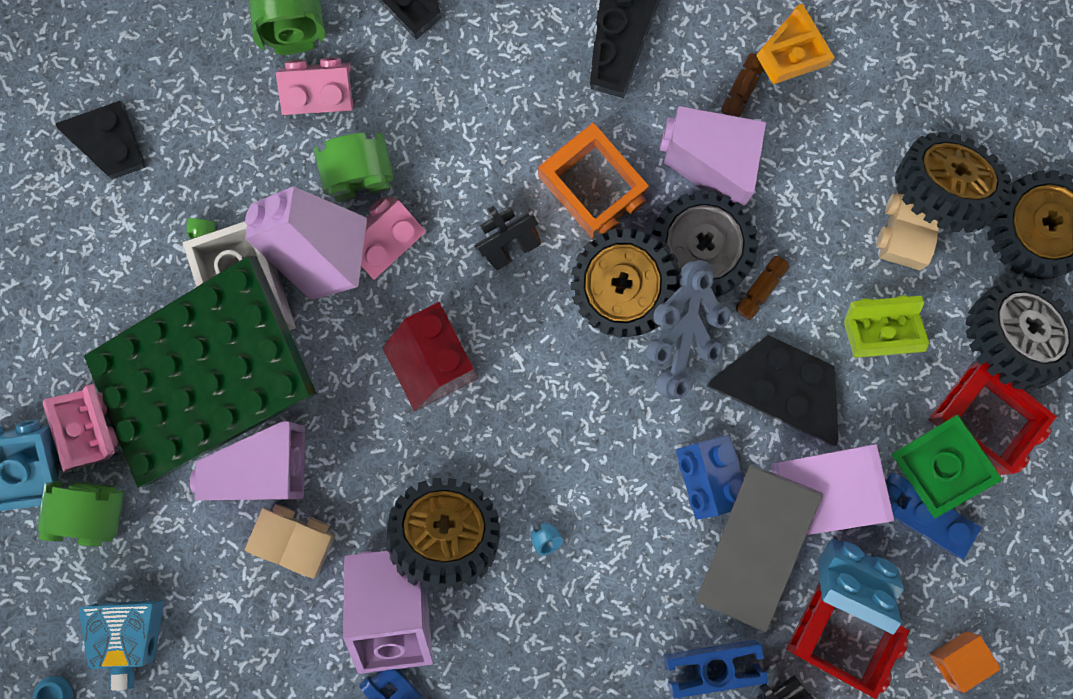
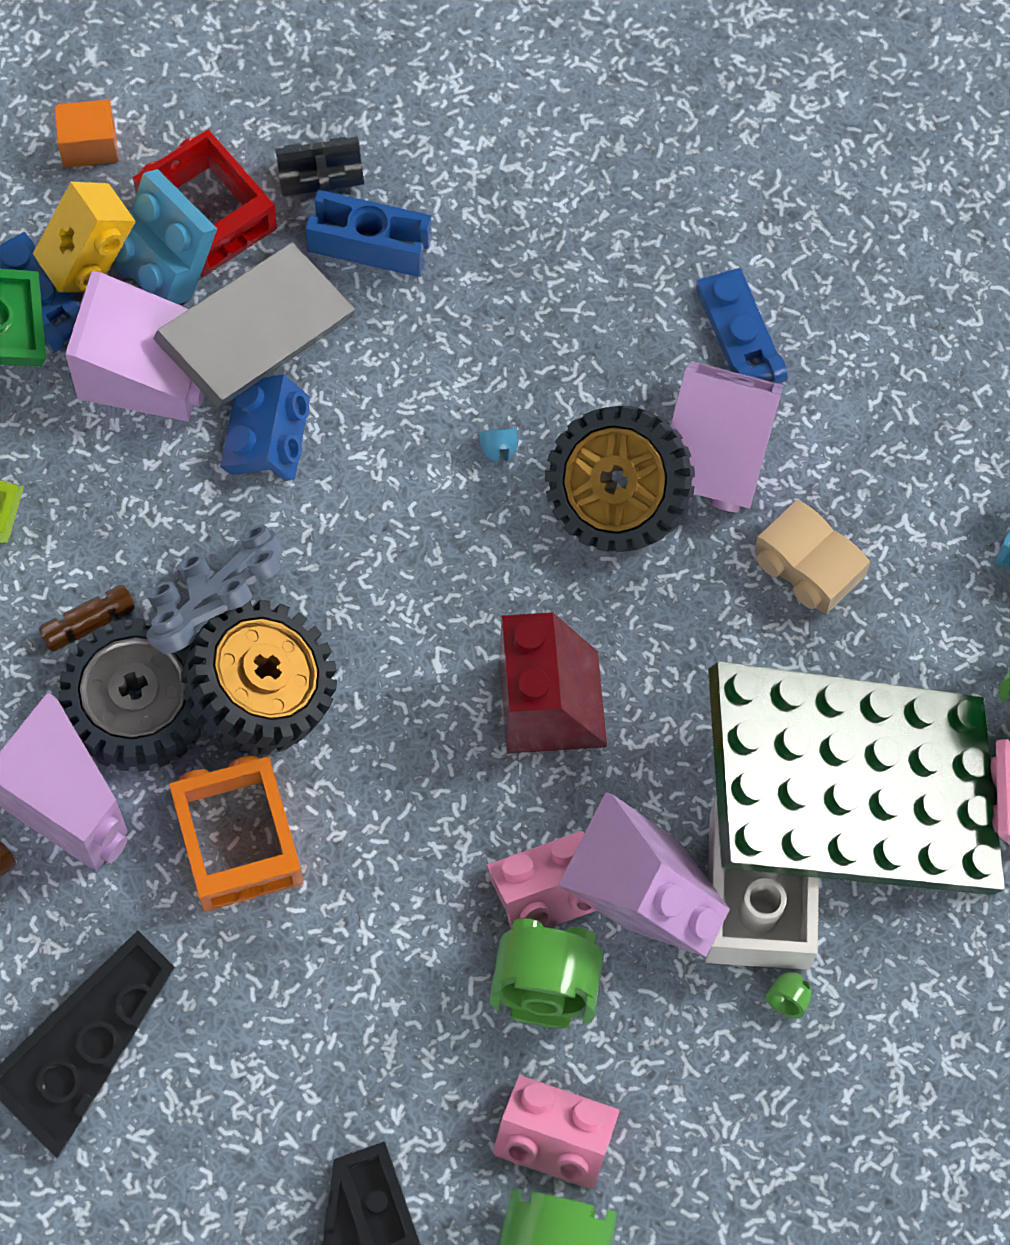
camera: 160 degrees left, 15 degrees down
(105, 139) = (884, 1183): black wing -> none
(255, 468) = (831, 633): lavender slope -> none
(521, 229) = (383, 812): black hips -> none
(784, 386) = (125, 495): black wing -> none
(917, 561) = (83, 235): none -> yellow brick

